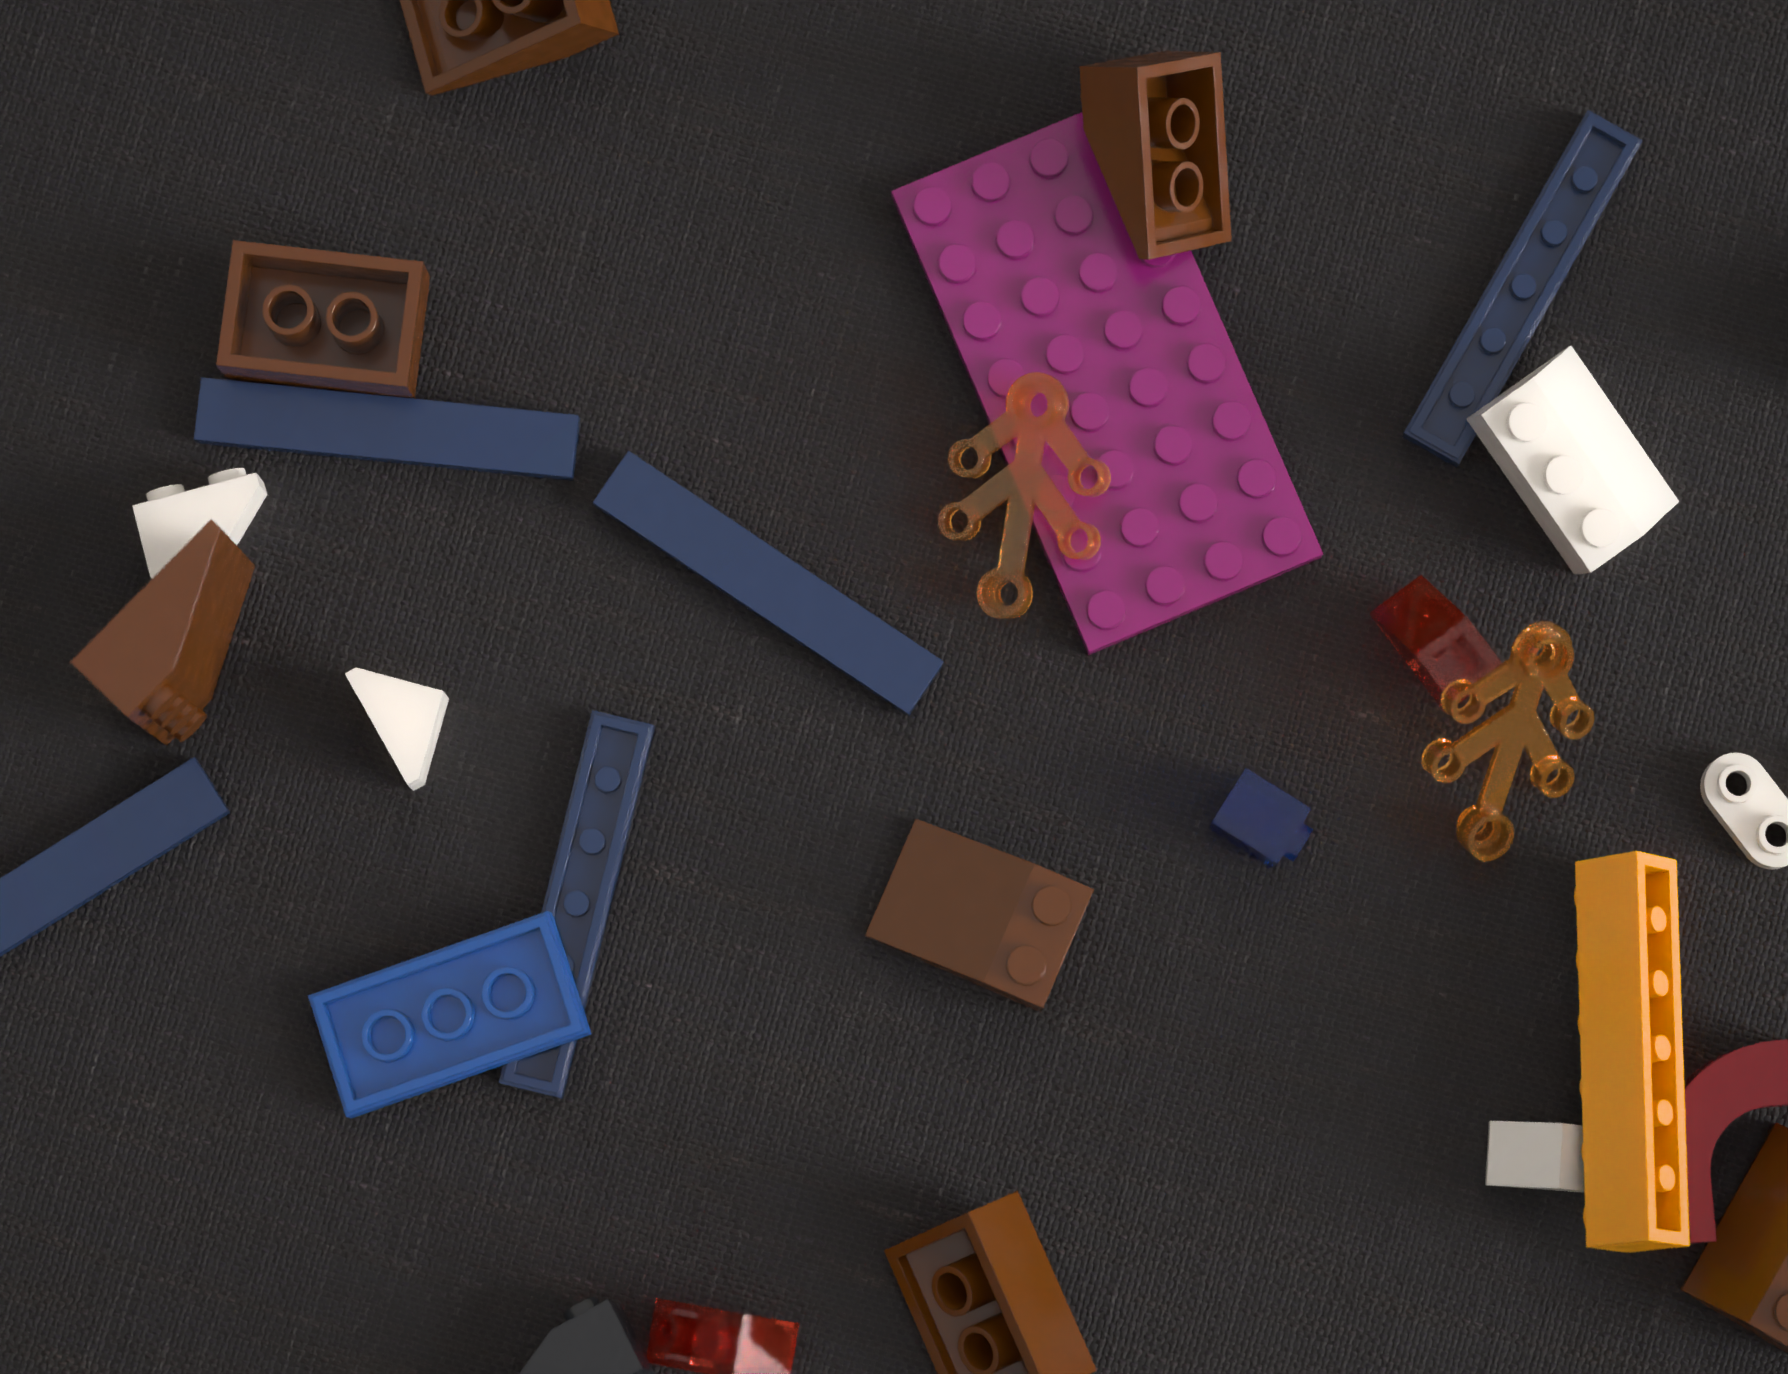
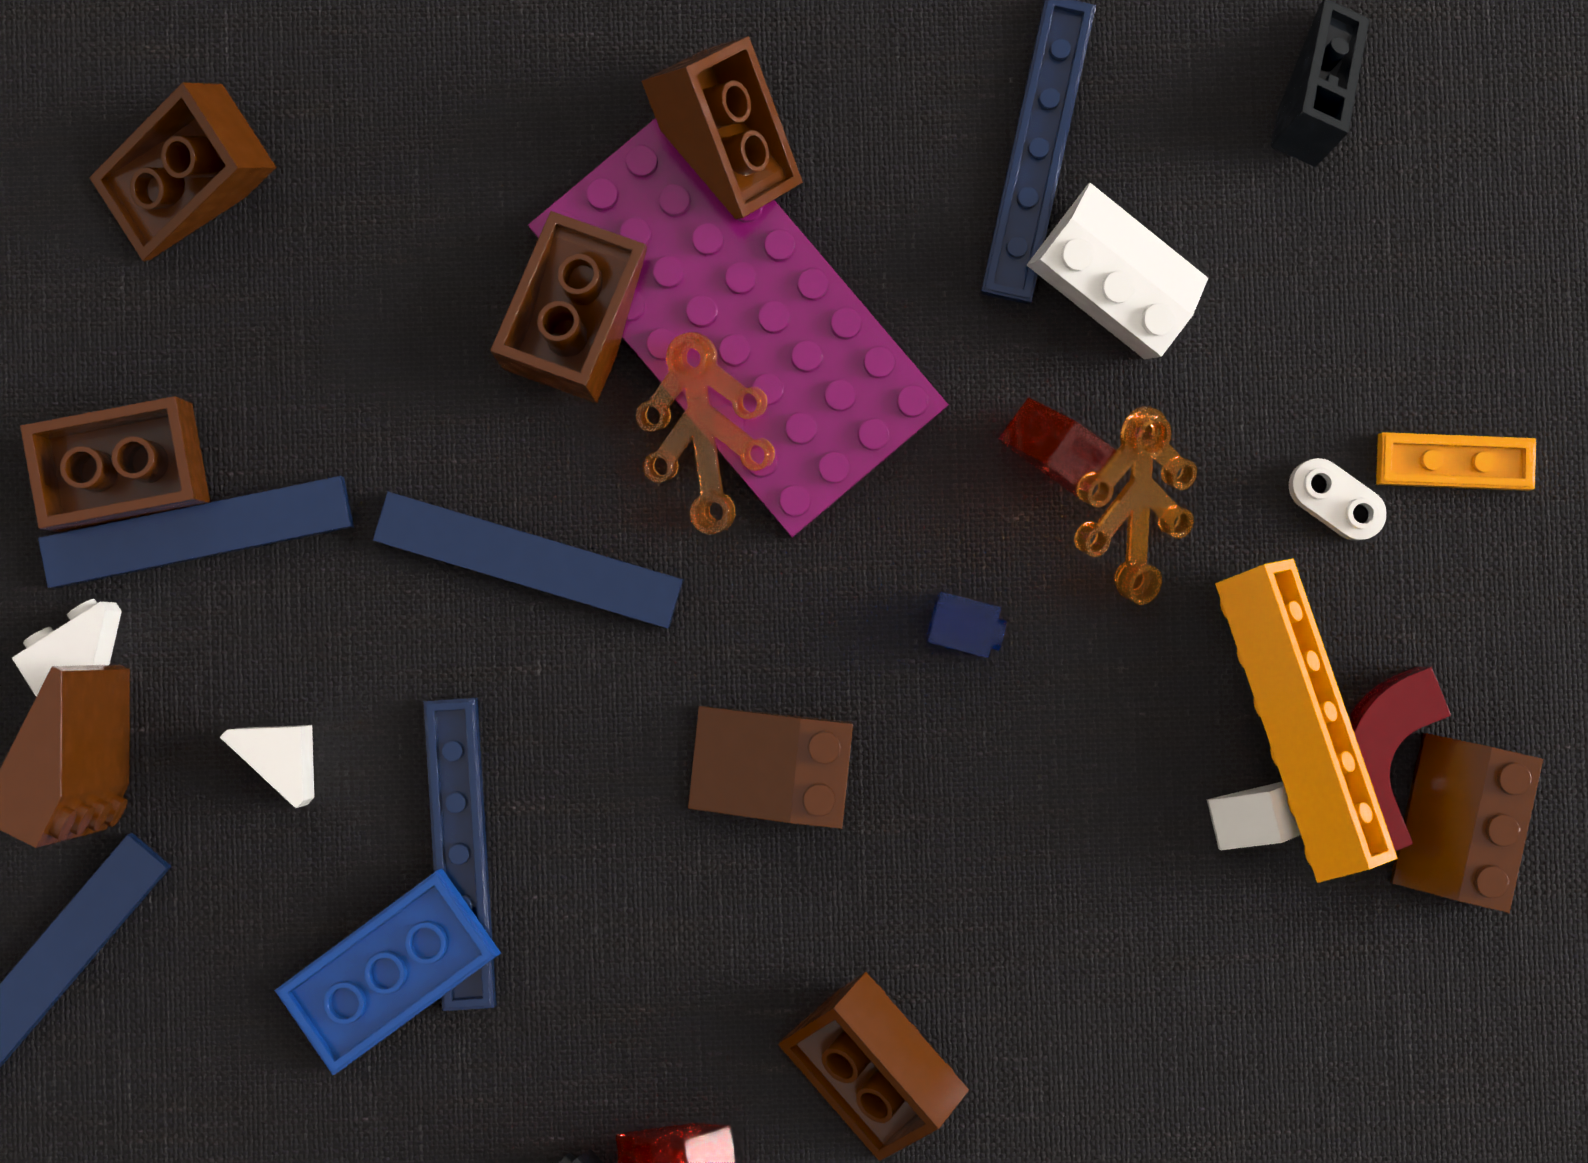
camera: 20 degrees left, 5 degrees up
(913, 302) = (570, 307): none -> reddish brown slope

